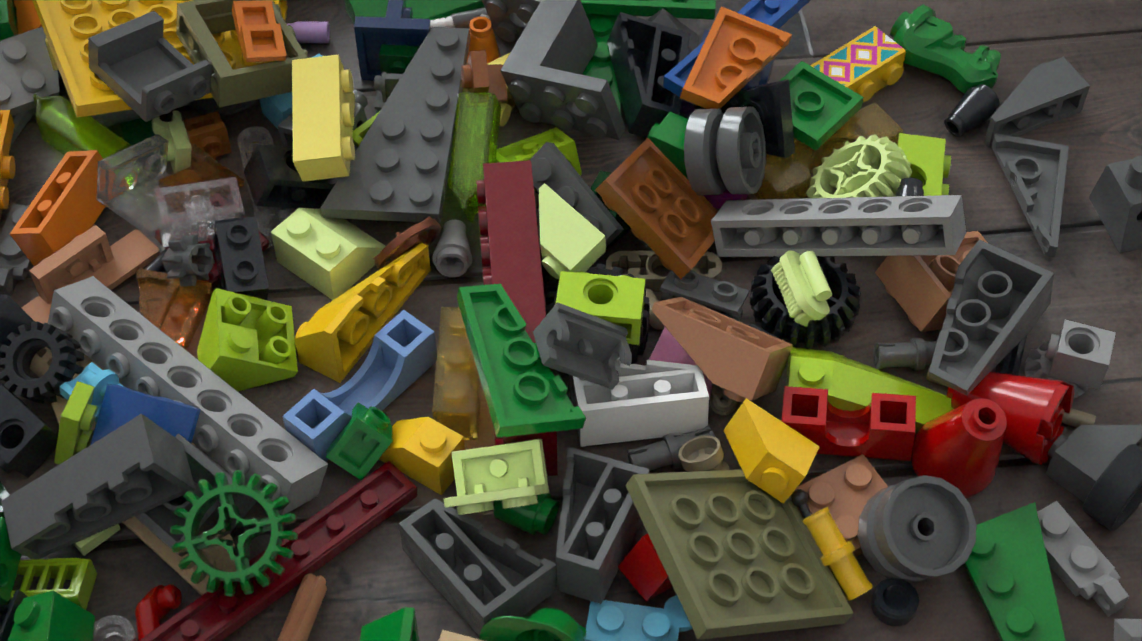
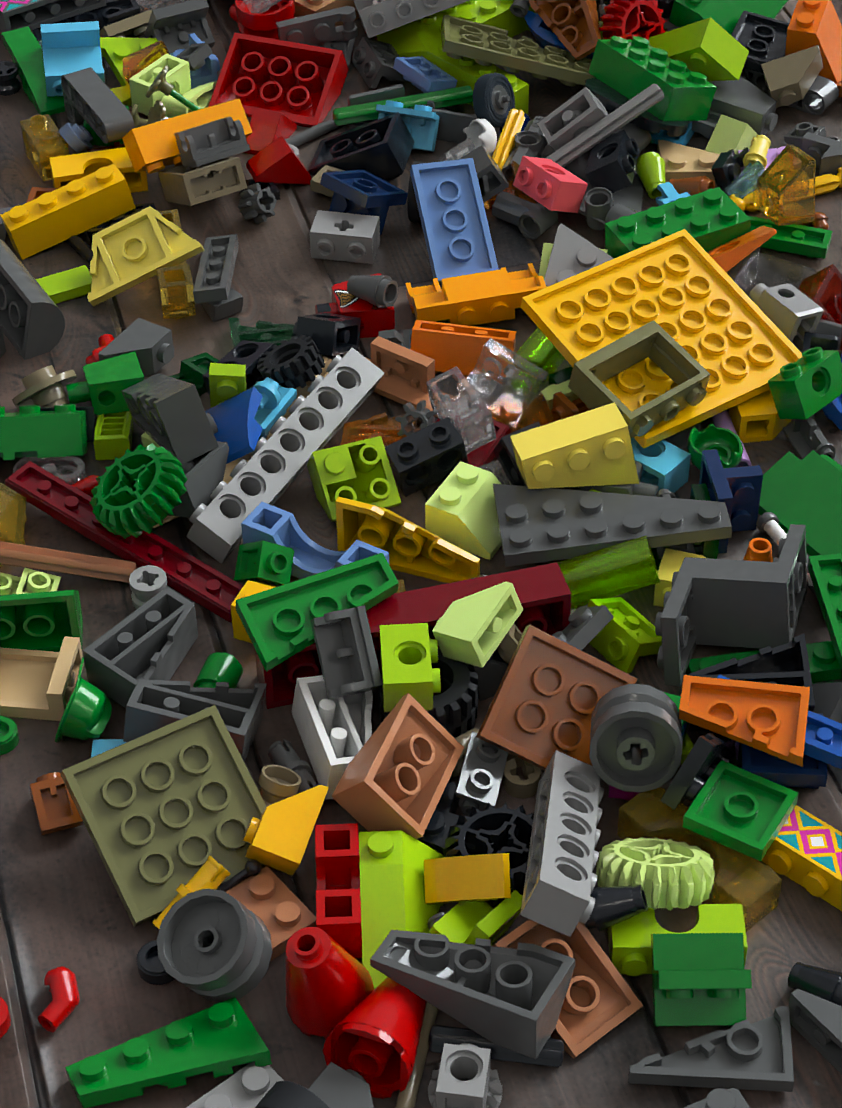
camera: 80 degrees right, 10 degrees down
(146, 67) = (580, 323): dark grey panel -> none
(258, 31) = (640, 379): orange slope -> none
(318, 34) = (722, 439): none -> green hair
(357, 575) = (146, 583): none -> light grey wheel
(408, 240) = (478, 547): copper wheel -> none
(483, 78) = (670, 546): dark orange bracket -> none
(498, 472) = (213, 644): yellowish green bracket -> none
(802, 286) = (493, 830): yellowish green piece -> none
(858, 317) = (467, 878): none -> yellow slope
(900, 317) = (478, 920): none -> lime panel
(976, 173) = (699, 979): none -> green bracket

